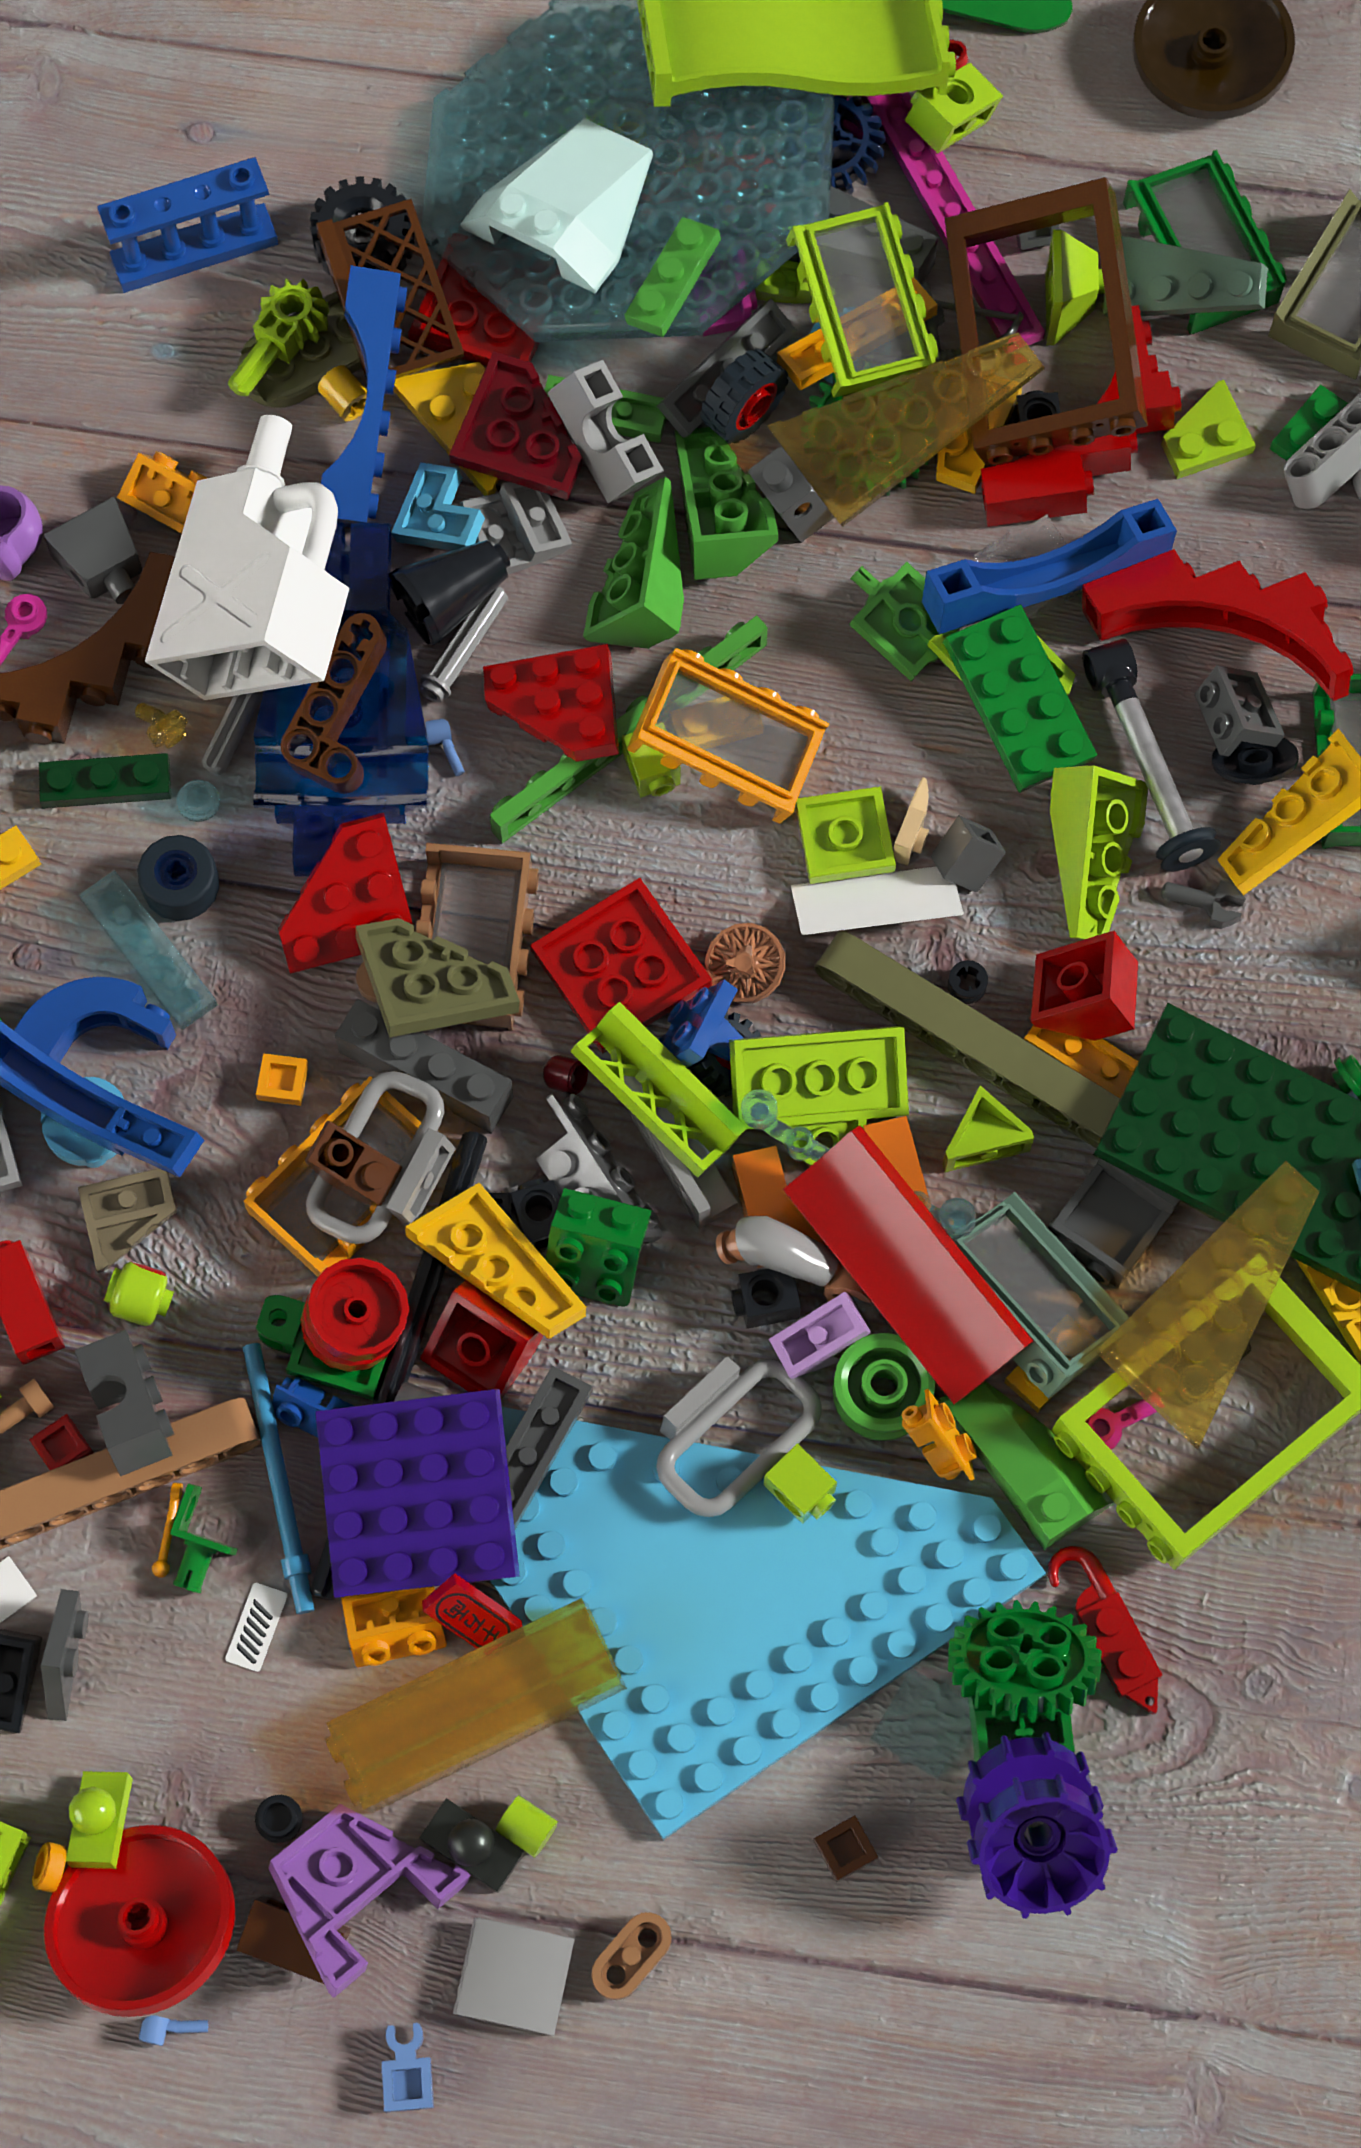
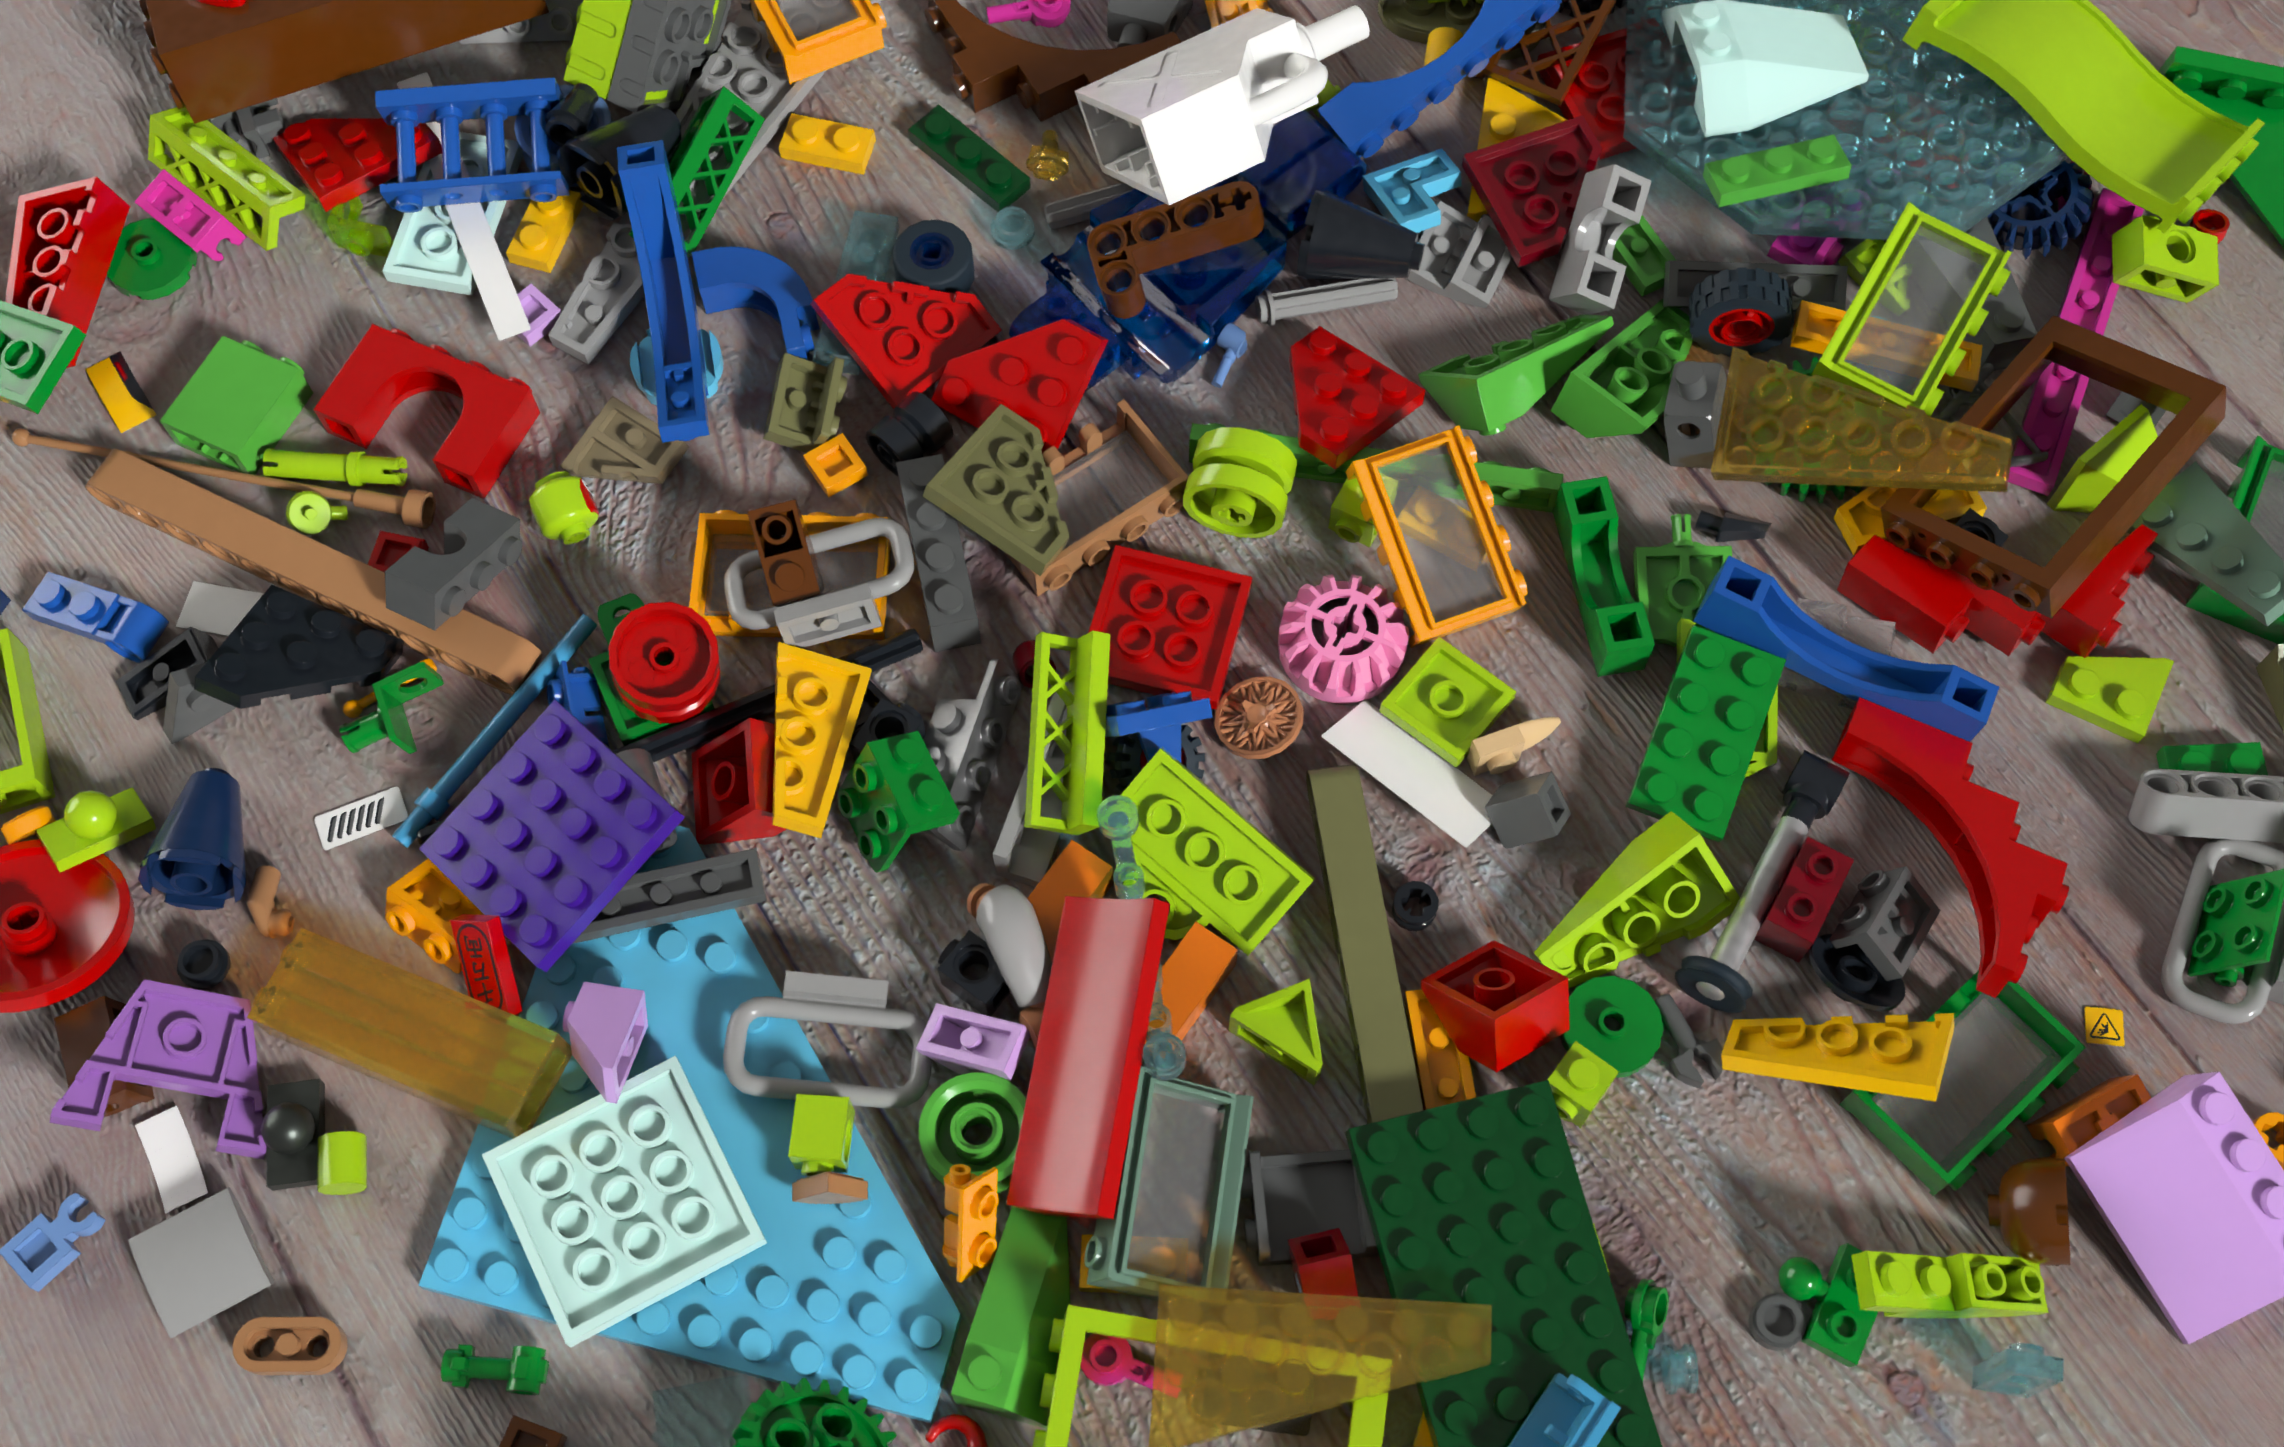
camera: 50 degrees right, 5 degrees down
(91, 1569) = (295, 651): none -> black plate
(186, 1748) = (200, 845): none -> dark blue cone
(212, 1058) = (805, 403): none -> olive bracket
(224, 944) = (903, 330): none -> red plate
(268, 1742) = (262, 905): none -> medium nougat arm
(310, 1004) = (915, 429): none -> black wheel
(412, 1947) = (172, 1158): none -> white sticker
(567, 823) = (1240, 482): none -> lime wheel
(605, 1570) = (606, 1033): none -> lavender slope
(730, 1650) = (623, 1201): none -> light aqua plate
(736, 890) = (1342, 671): none -> bright pink gear
(785, 1810) = (523, 1371): none -> green bar
(841, 1510) = (830, 1189): none -> medium nougat tile
(884, 547) = (1732, 527): none -> black bar
(885, 681) = (1589, 538): none -> green arch
(1158, 956) = (1631, 1006): none -> green plate
(1162, 1245) = (1323, 1264): none -> dark red brick
(1180, 984) = (1580, 1083): none -> lime brick
(1183, 743) = (1804, 899): none -> dark red brick

